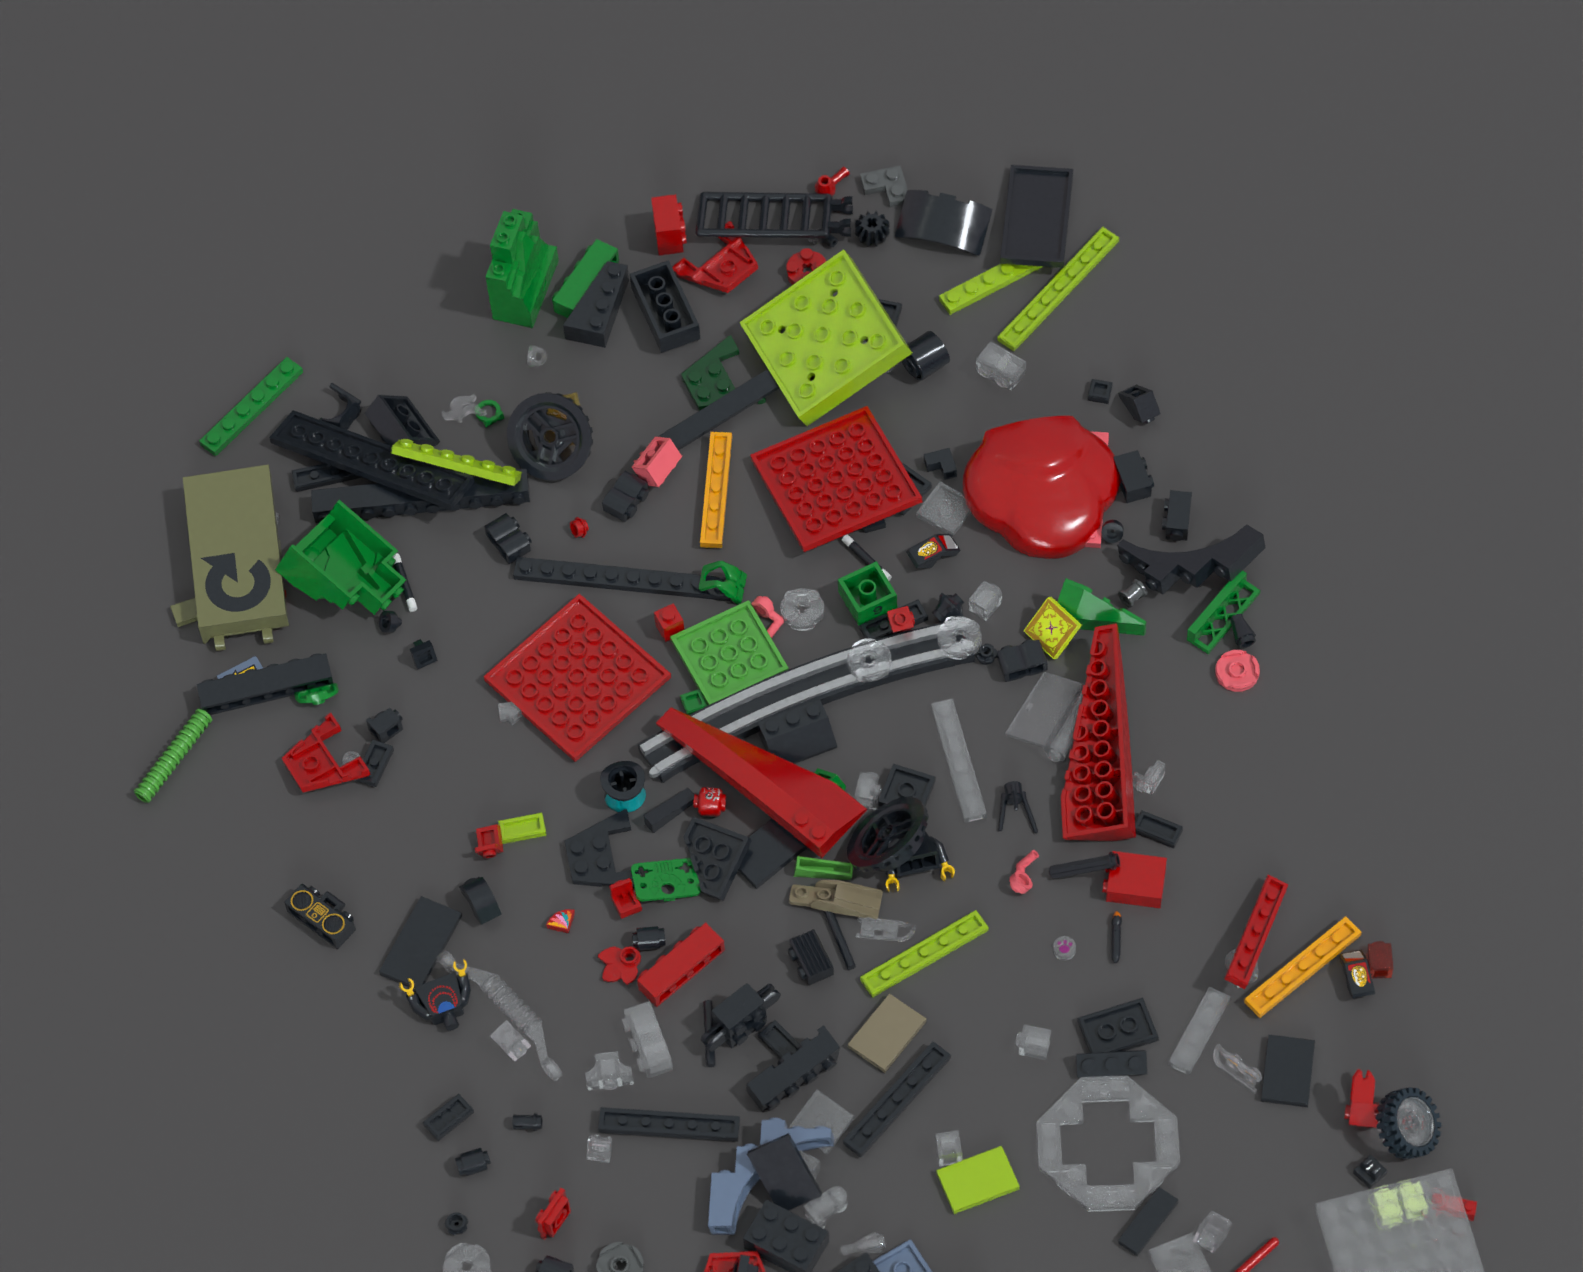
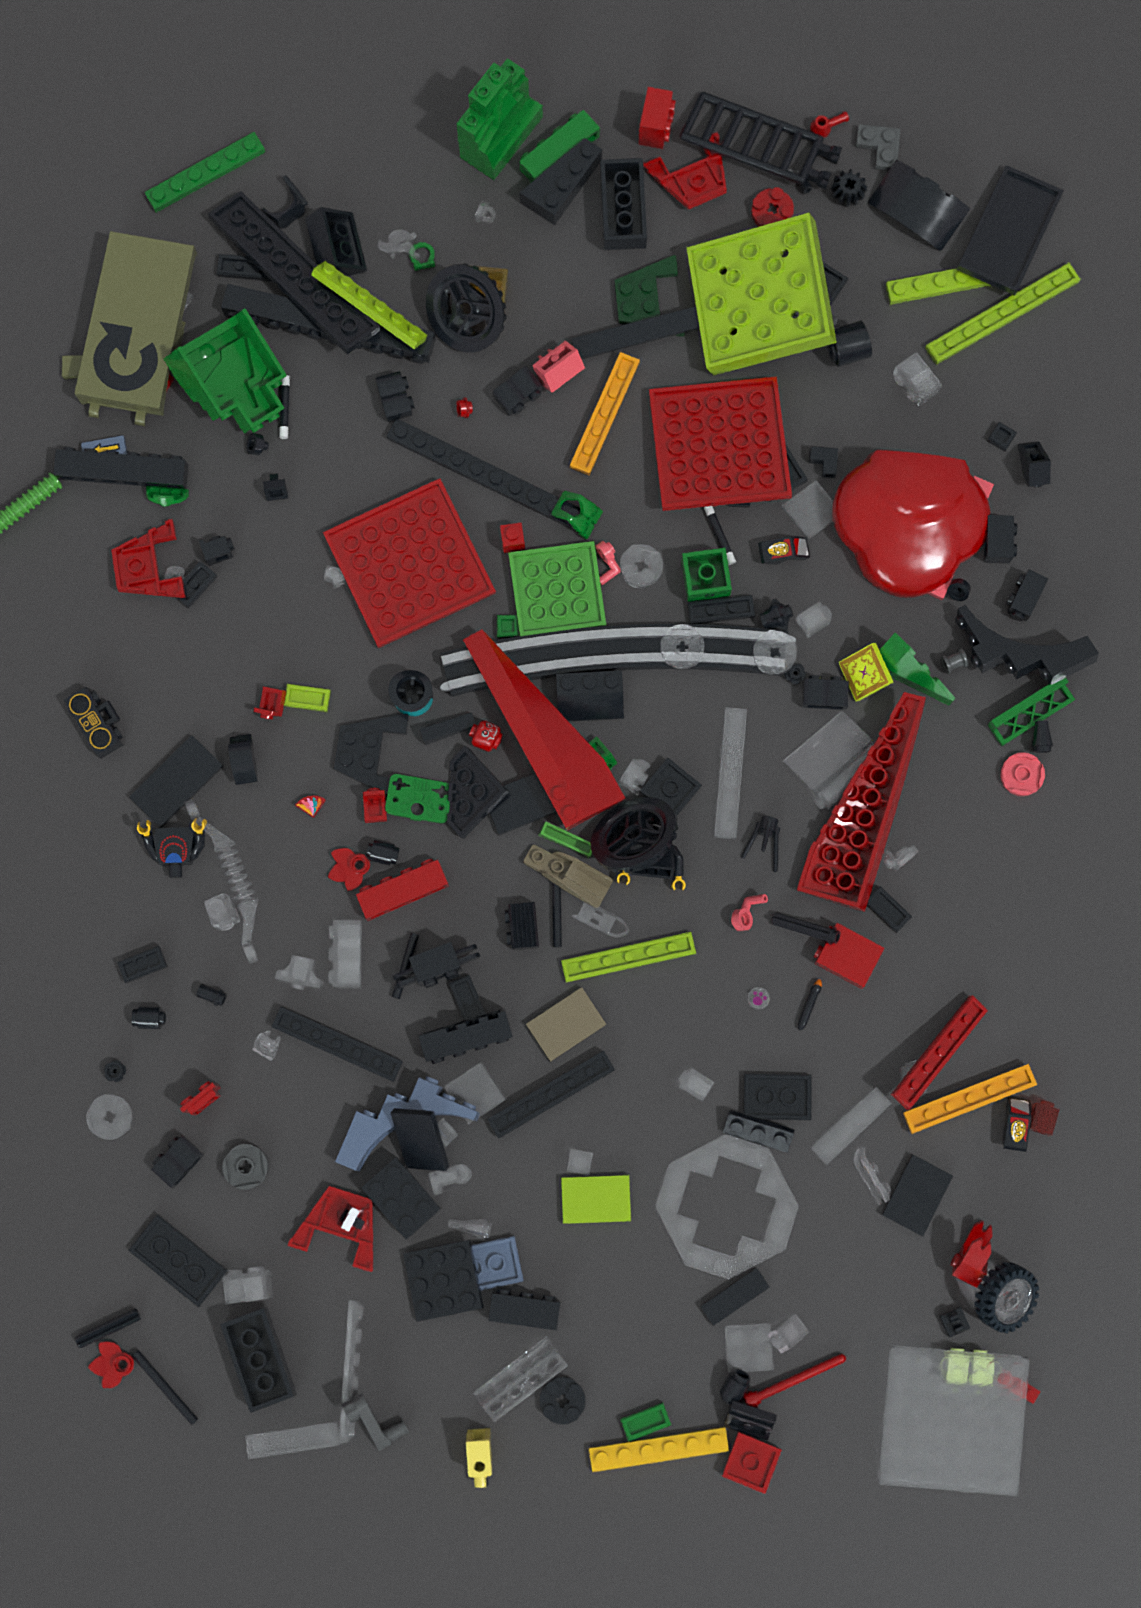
camera: 15 degrees right, 20 degrees up
(901, 619) = (726, 616): red bracket -> none

